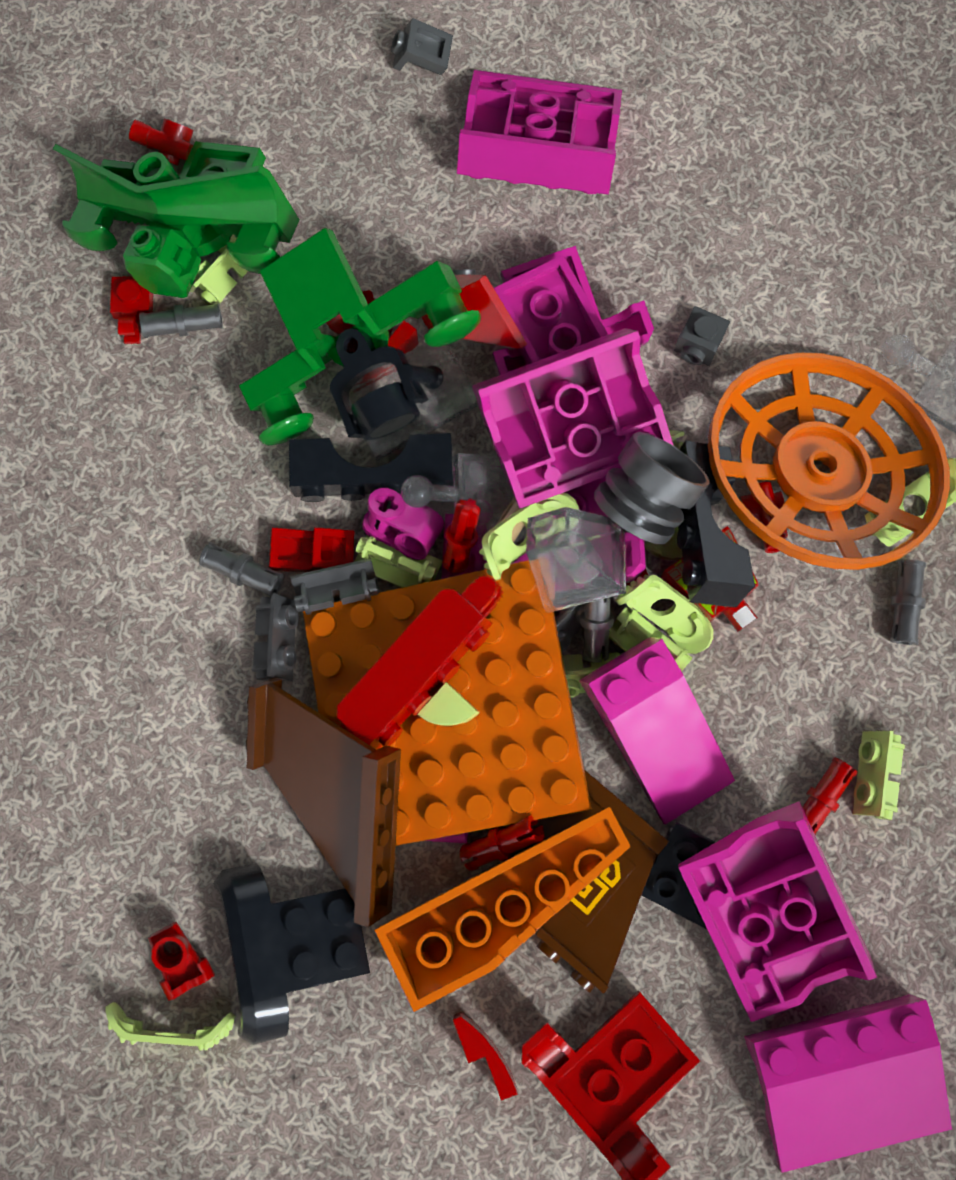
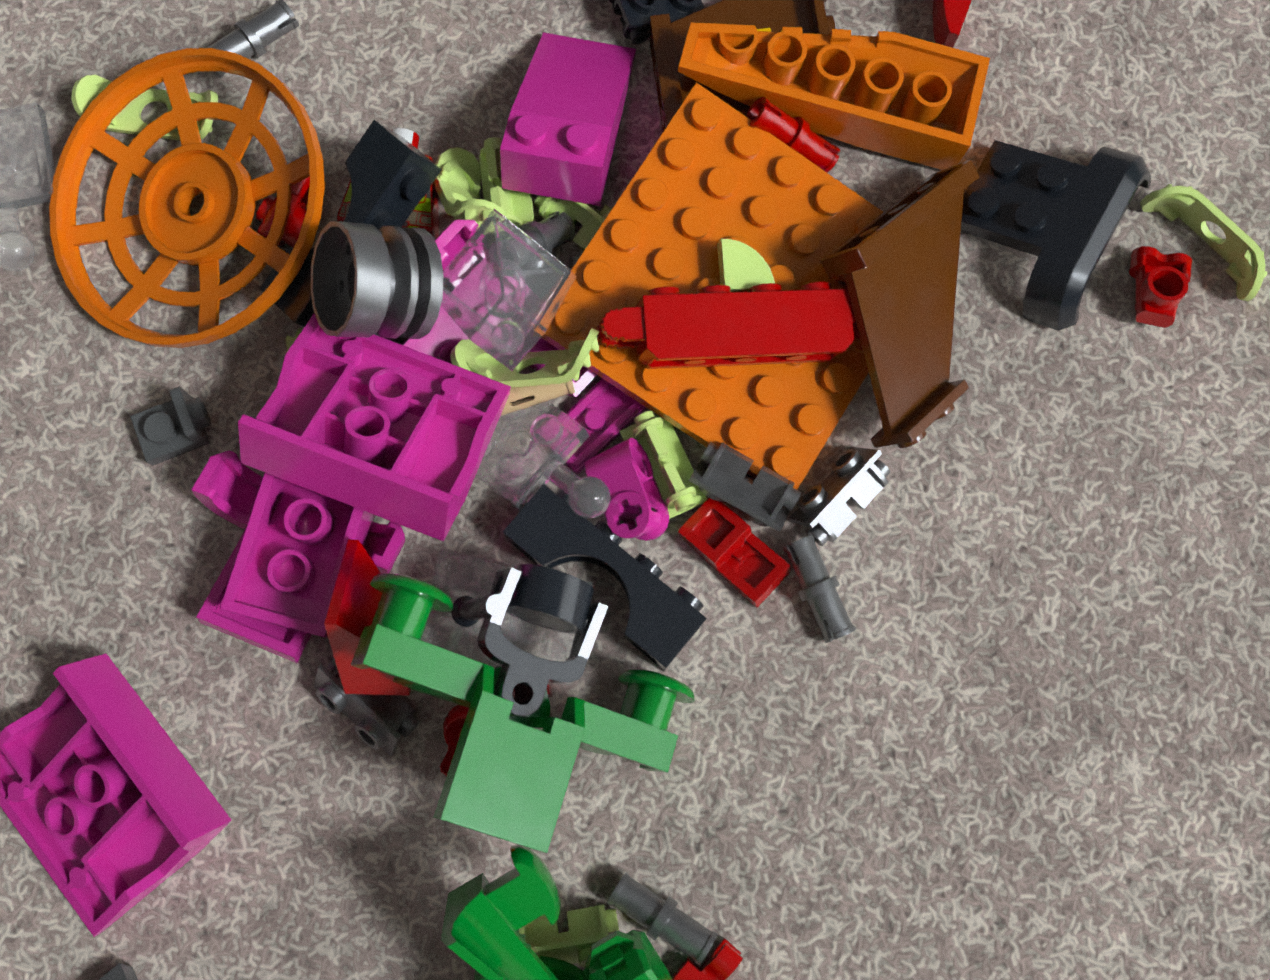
camera: 145 degrees left, 0 degrees up
(461, 535) = (587, 414): red axle -> none

